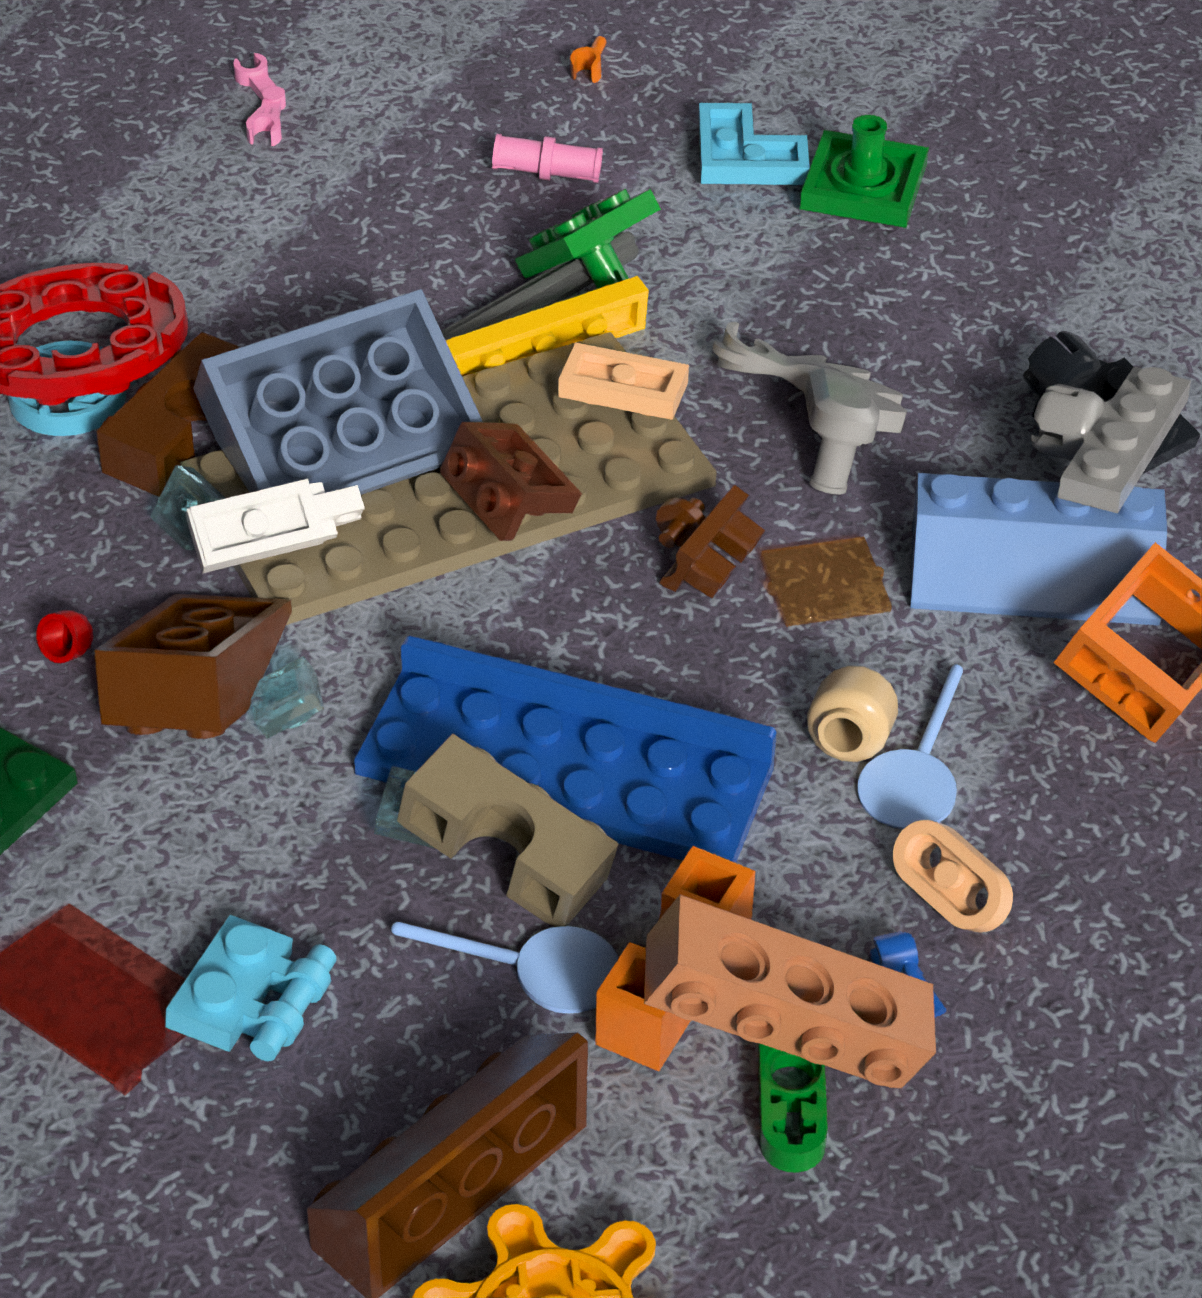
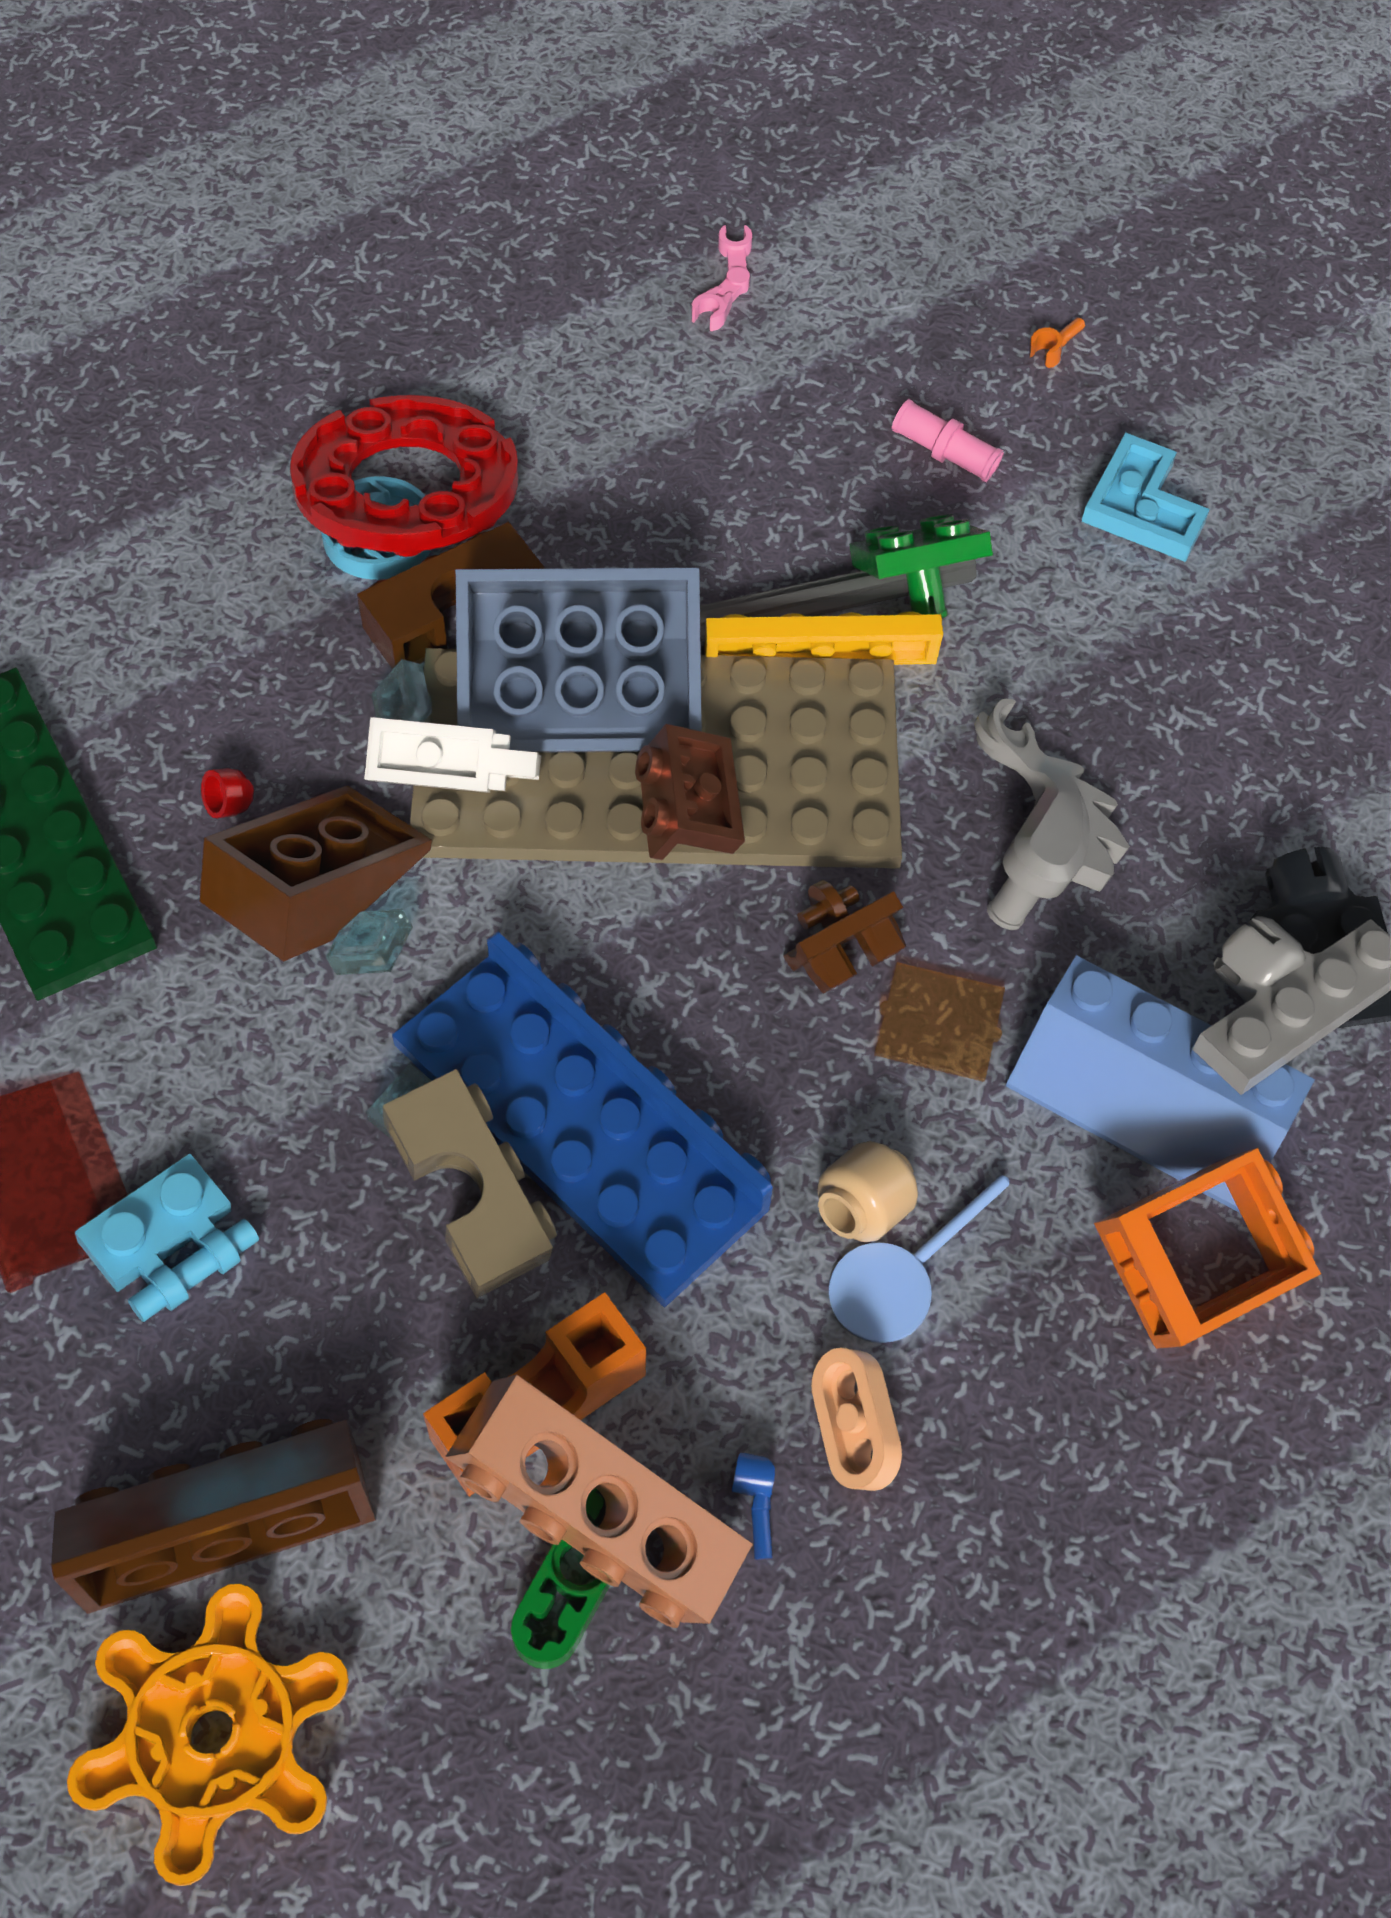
camera: 25 degrees right, 15 degrees up
(555, 967) = (447, 1337): light blue piece -> none
(623, 381) = (859, 729): light nougat plate -> none
(864, 175) = (1242, 577): green plate -> none

